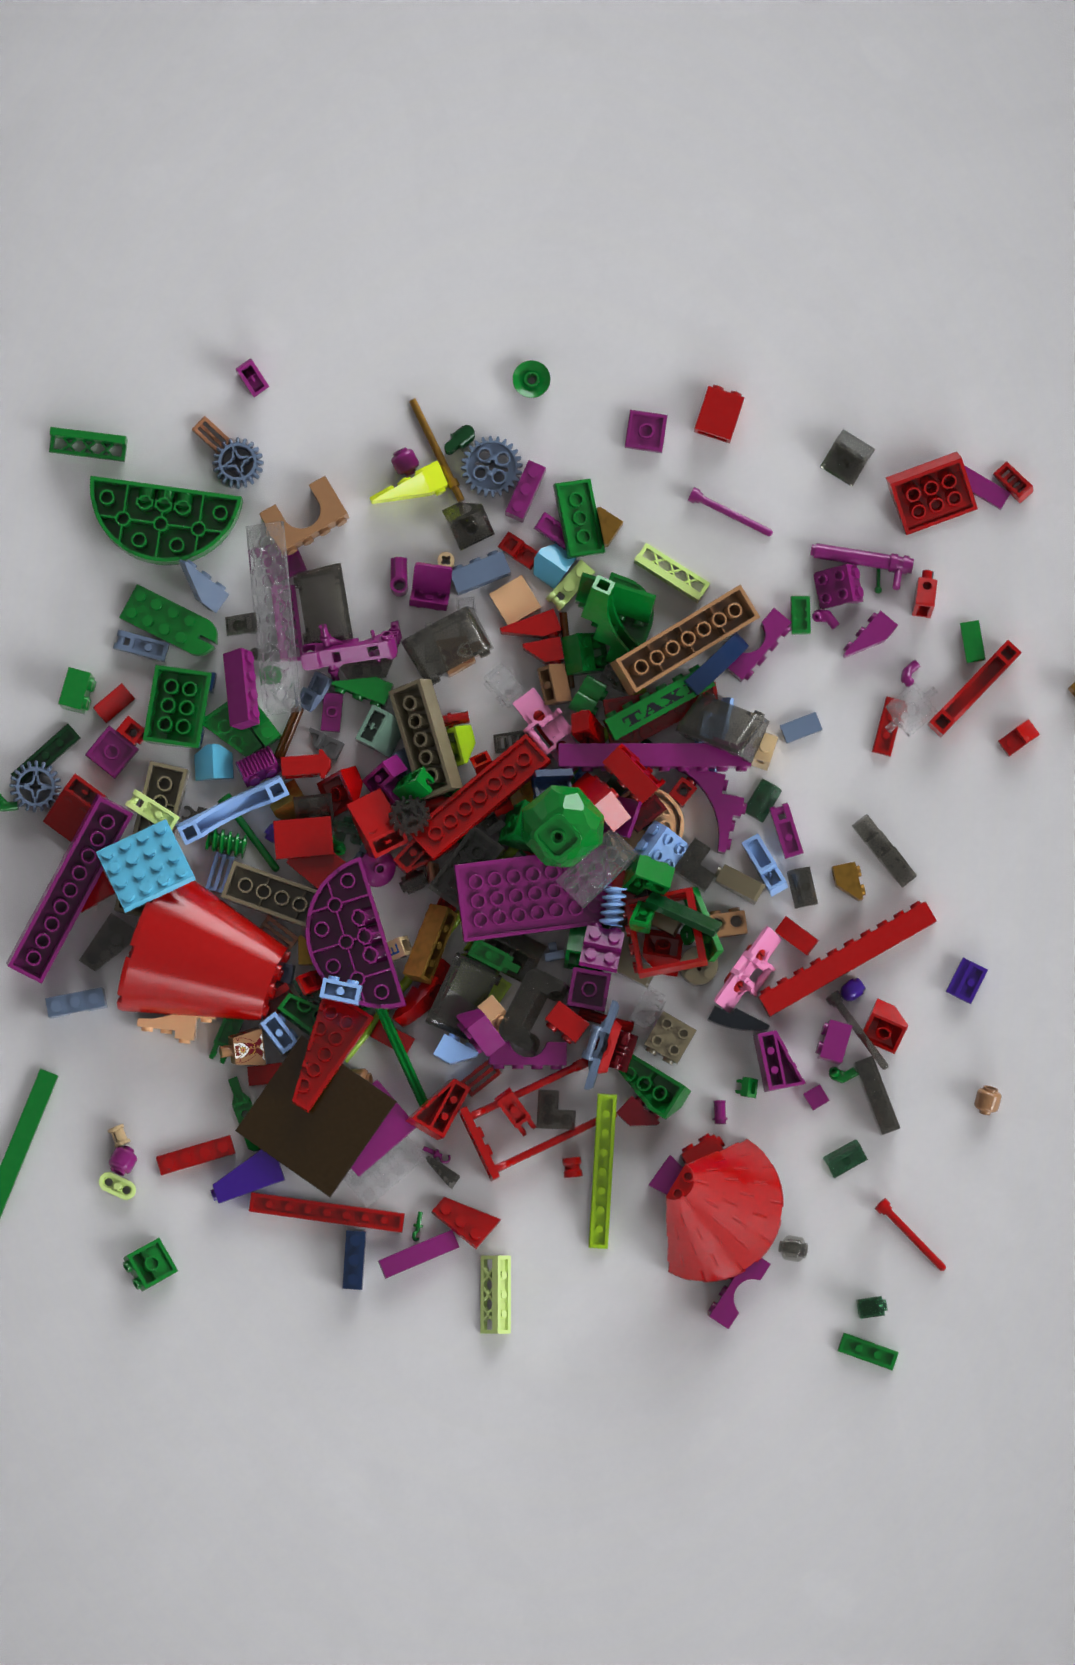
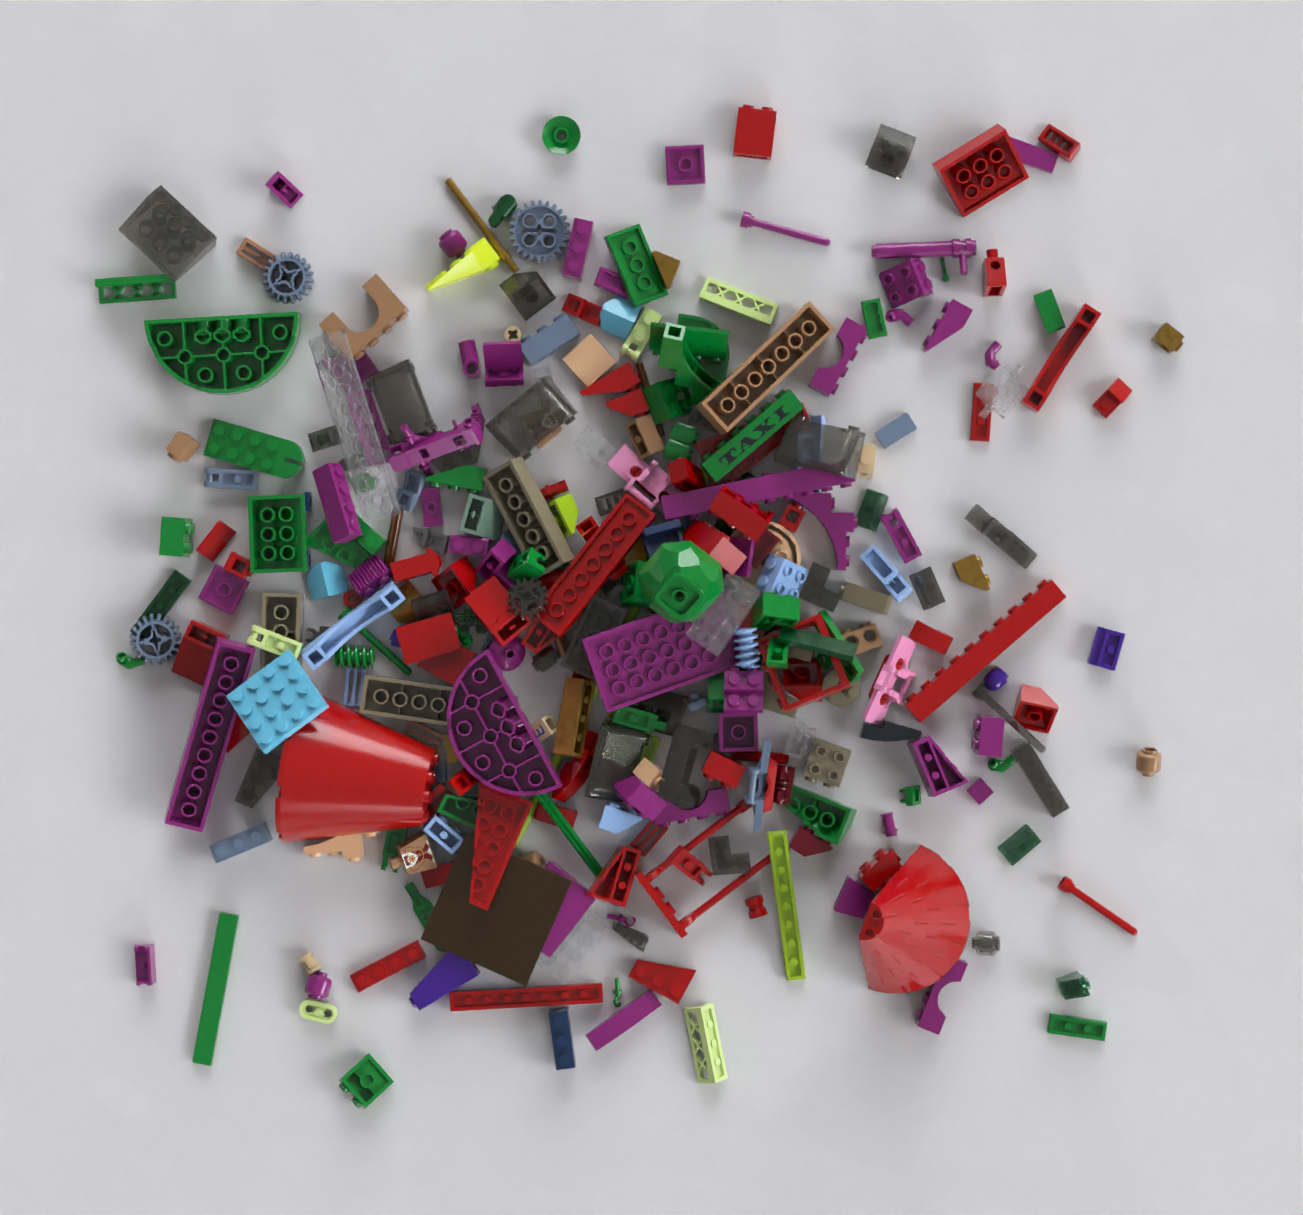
camera: 10 degrees left, 5 degrees up
(101, 605) = (182, 447): none -> medium nougat brick
(131, 397) = (168, 234): none -> clear smoke slope
(204, 590) = (281, 412): sand blue slope -> none
(231, 781) = (346, 599): none -> red plate
(336, 990) = (495, 788): light blue brick -> none
(361, 756) = (468, 545): none -> magenta brick
(716, 663) = (802, 385): dark blue slope -> none

